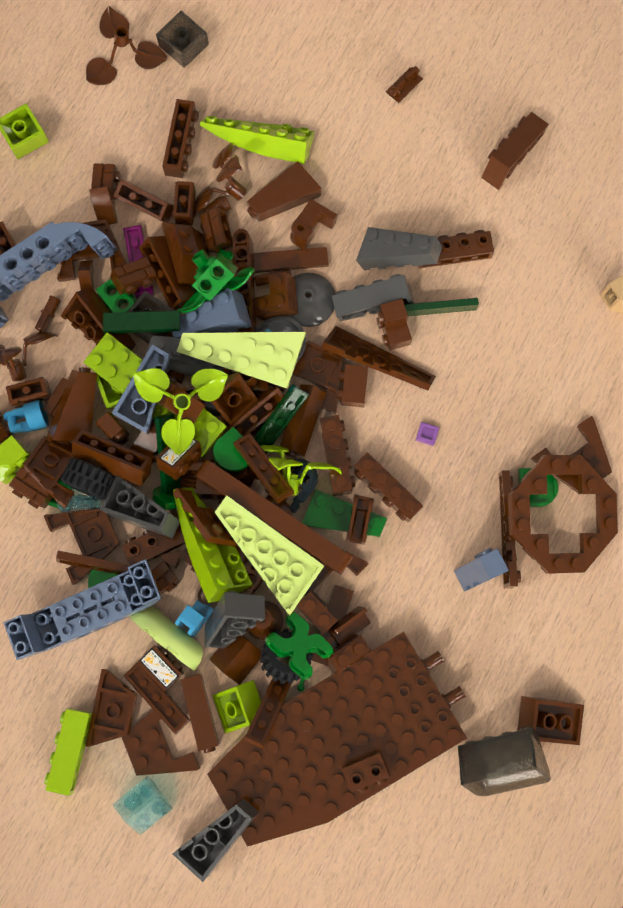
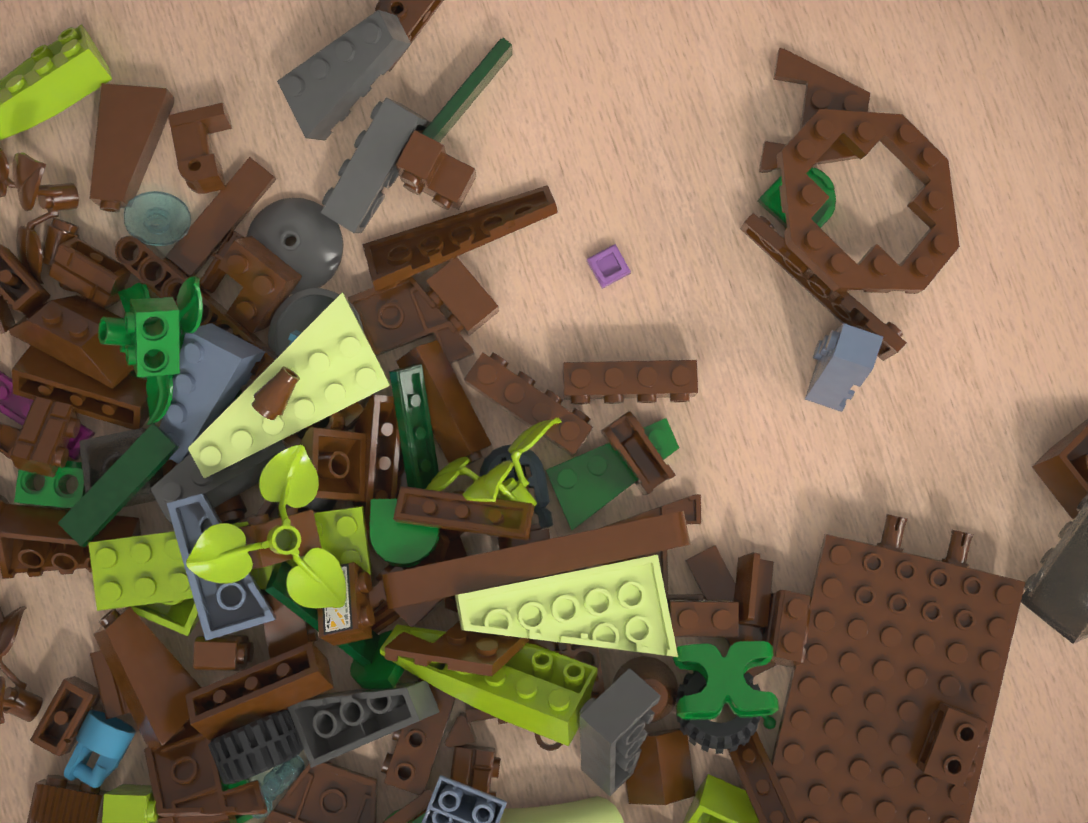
camera: 50 degrees left, 5 degrees up
(194, 617) = (562, 775): dark azure piece -> none
(237, 345) = (275, 394): none -> reddish brown cone
(269, 231) = (159, 209): none -> clear light blue dish

